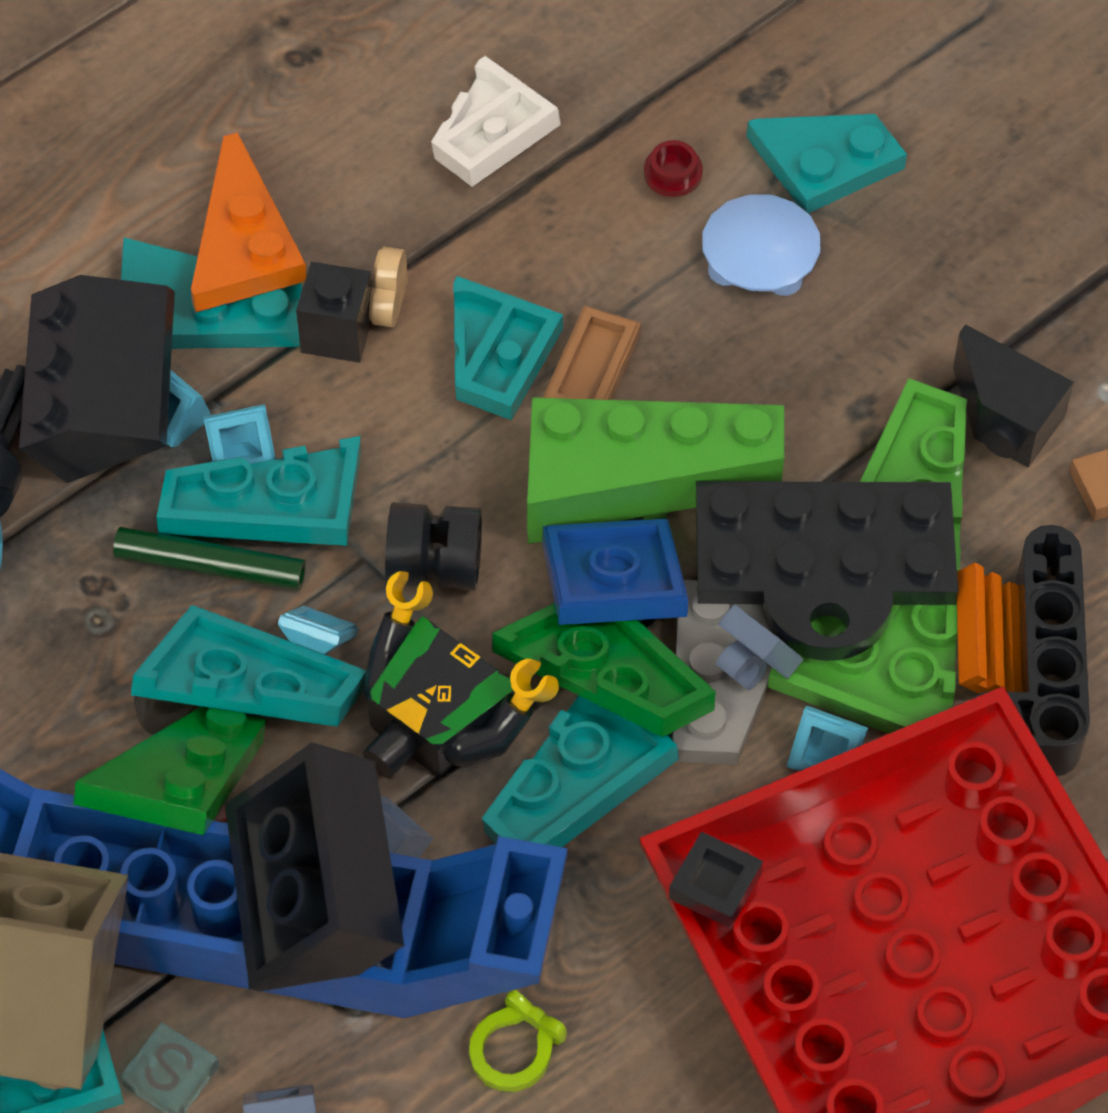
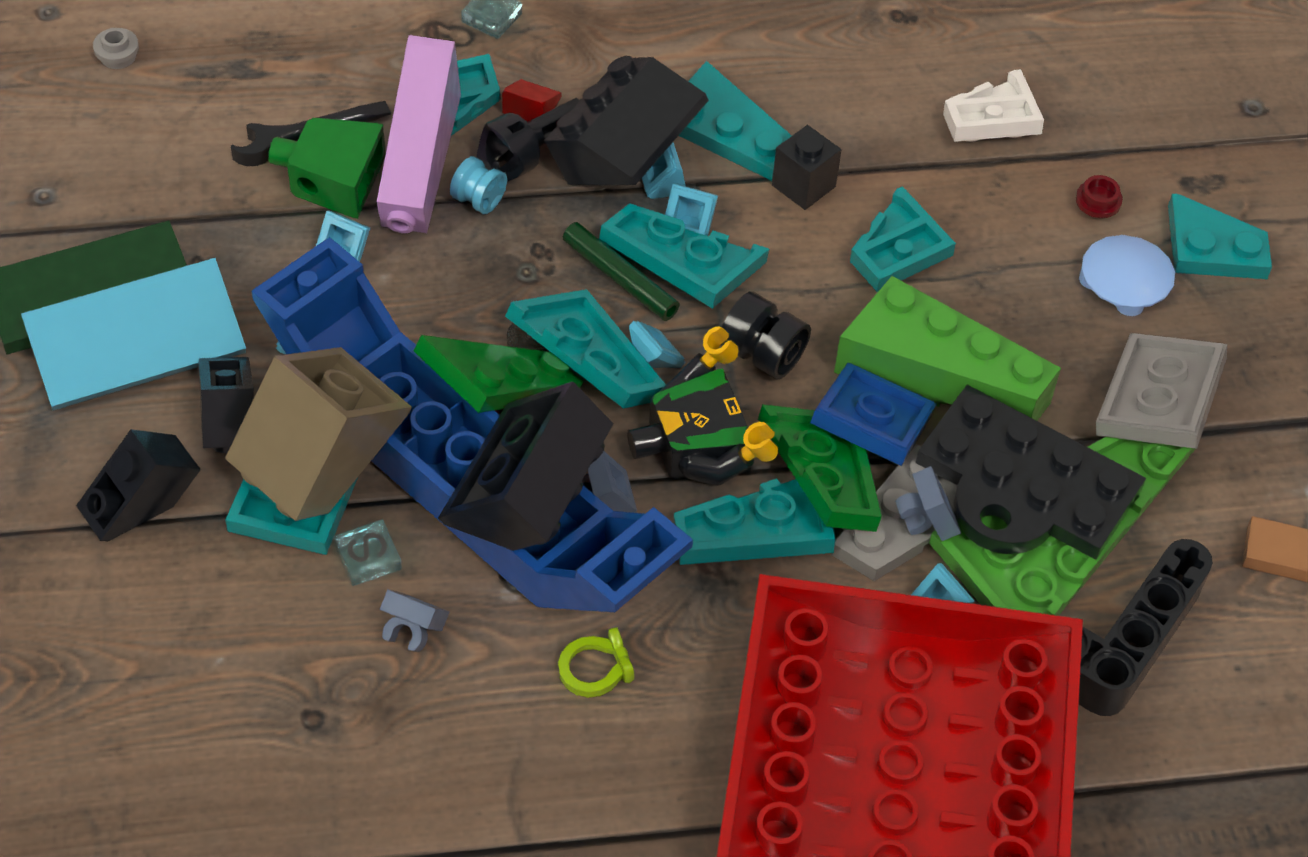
camera: 30 degrees right, 5 degrees down
(243, 237) = (779, 96): orange wing -> none
(389, 286) = (854, 171): tan tile -> none
(594, 356) = (963, 281): medium nougat tile -> none
(715, 879) = (786, 623): black plate -> none
(895, 368) = (1162, 390): none -> light grey tile
(988, 631) = (1109, 598): orange tile -> none
(1009, 397) = (1235, 454): black slope -> none

